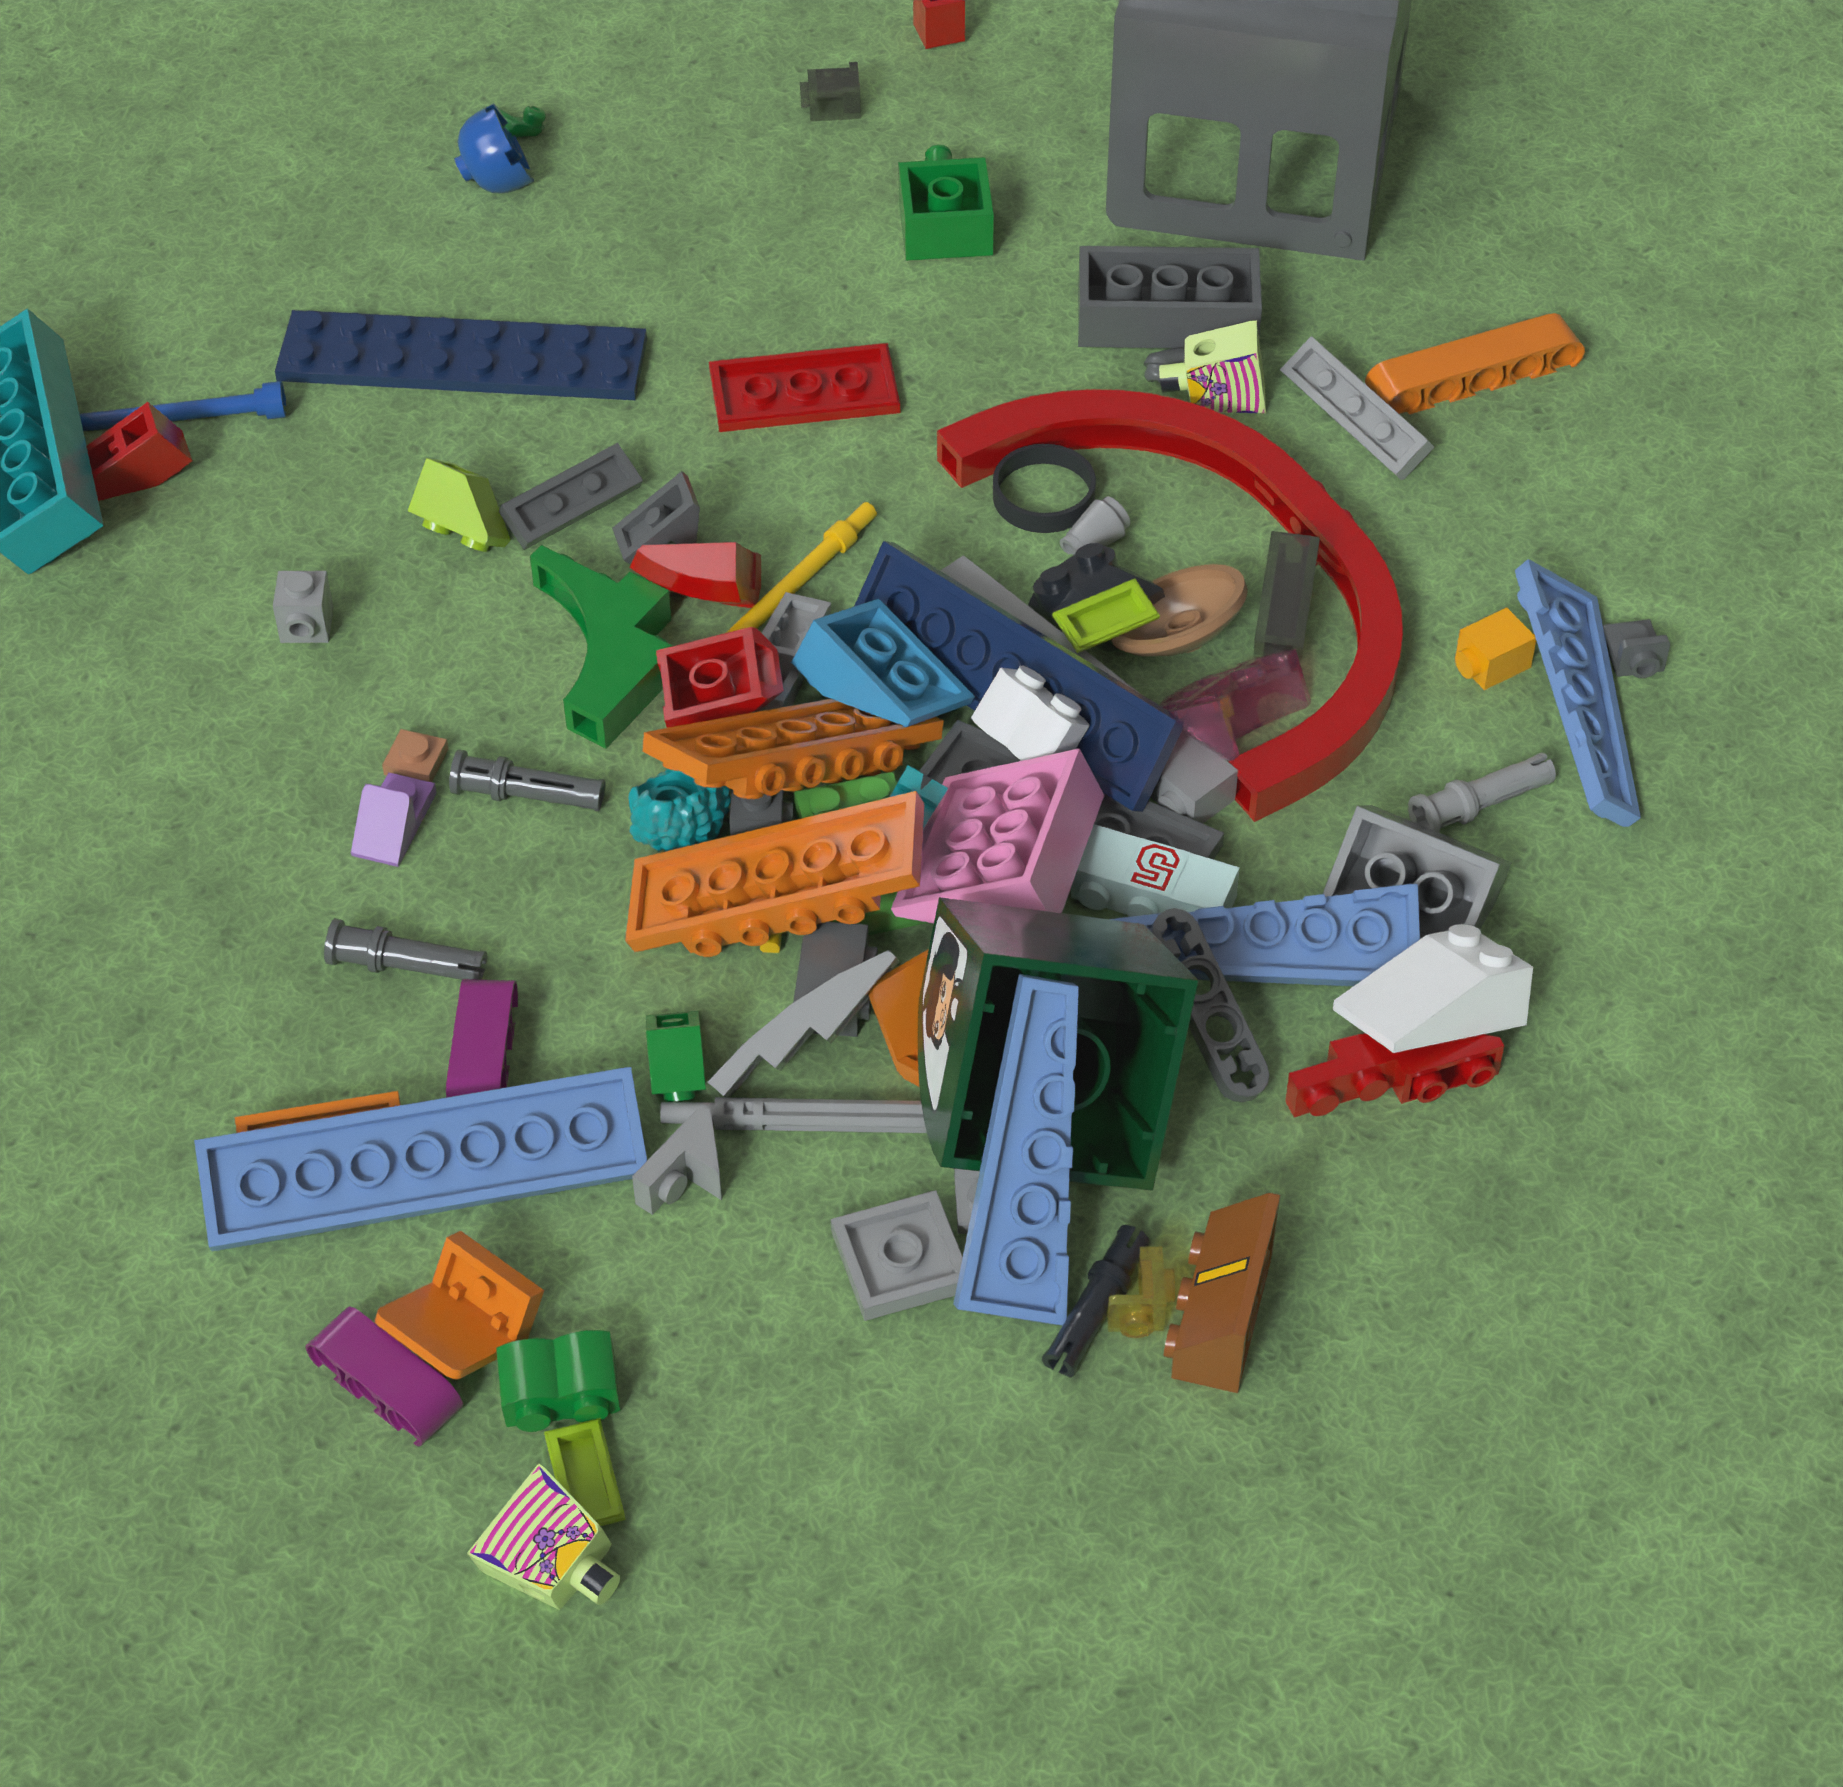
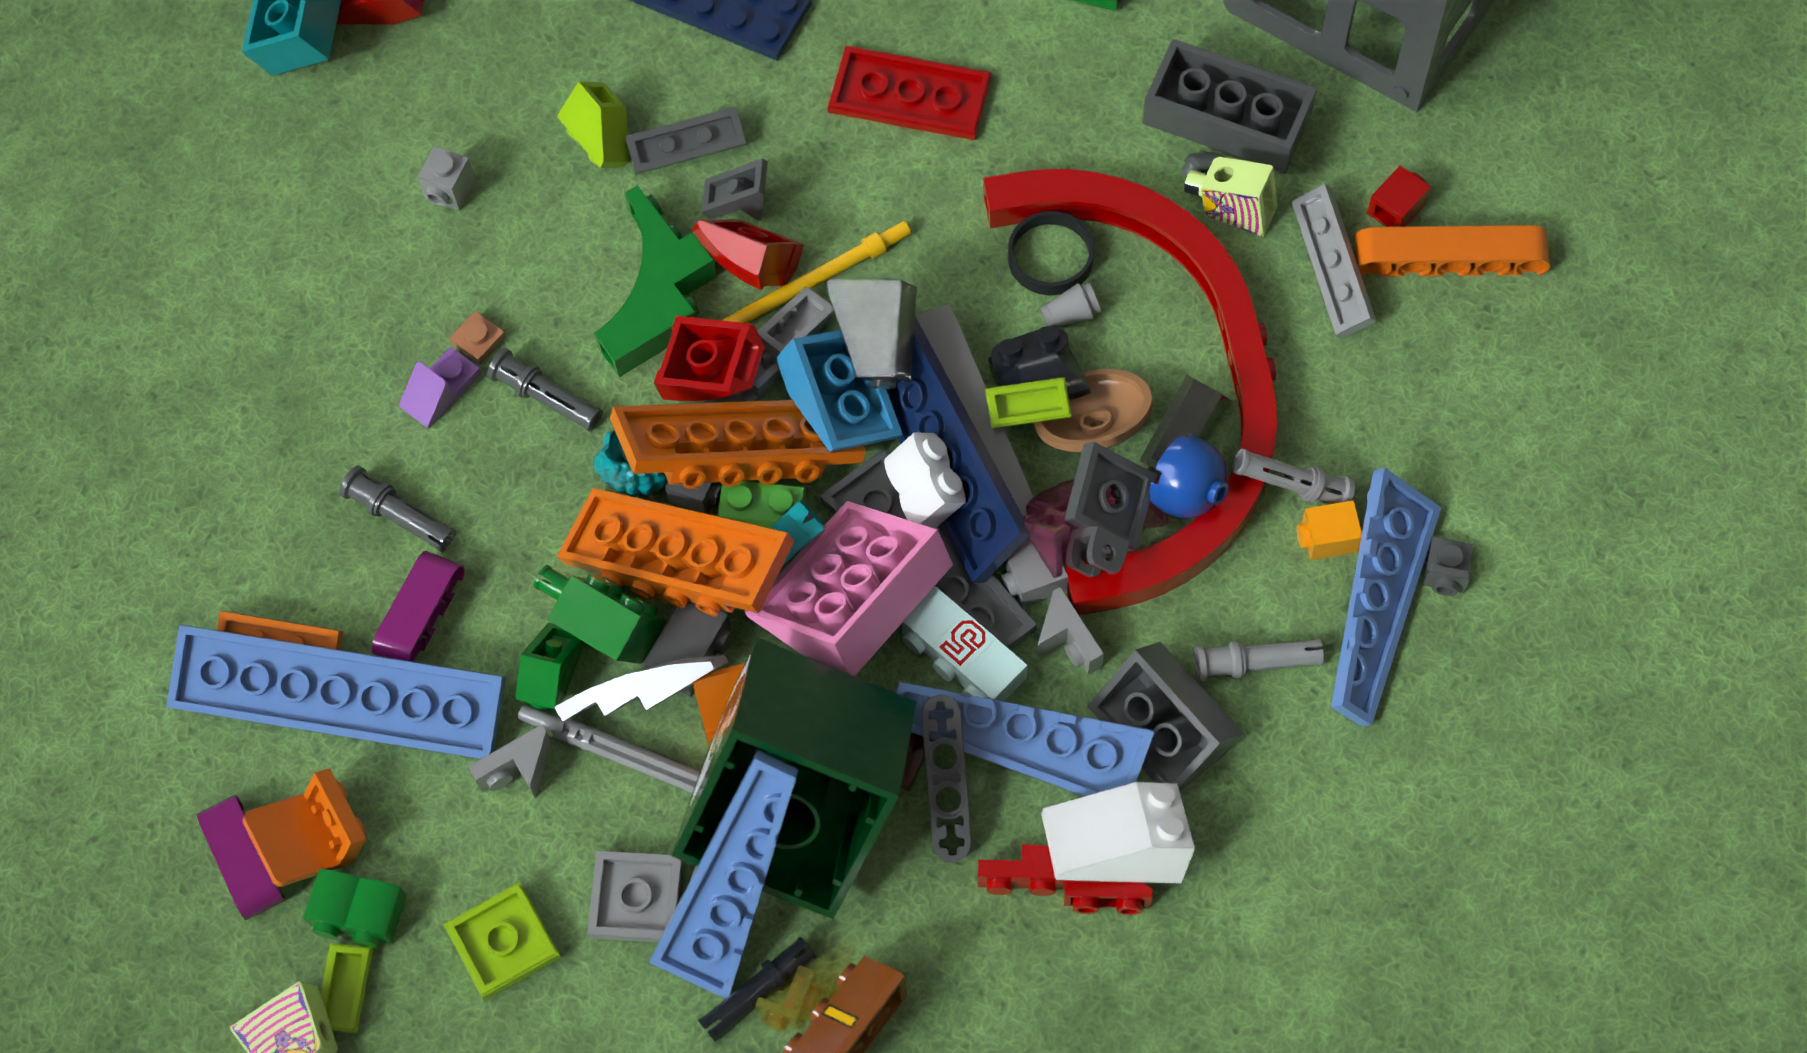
camera: 25 degrees right, 15 degrees up
(718, 966) = (602, 615): none -> green brick
(760, 1356) = (502, 941): none -> lime plate
(903, 579) = (877, 327): none -> clear smoke slope
(1257, 676) = (1104, 526): none -> dark grey plate
(1260, 824) = (1065, 625): none -> light grey slope
(1328, 631) = (1190, 478): none -> blue cylinder
(1393, 331) = (1399, 198): none -> red brick
(1450, 608) = (1307, 482): none -> light grey pin

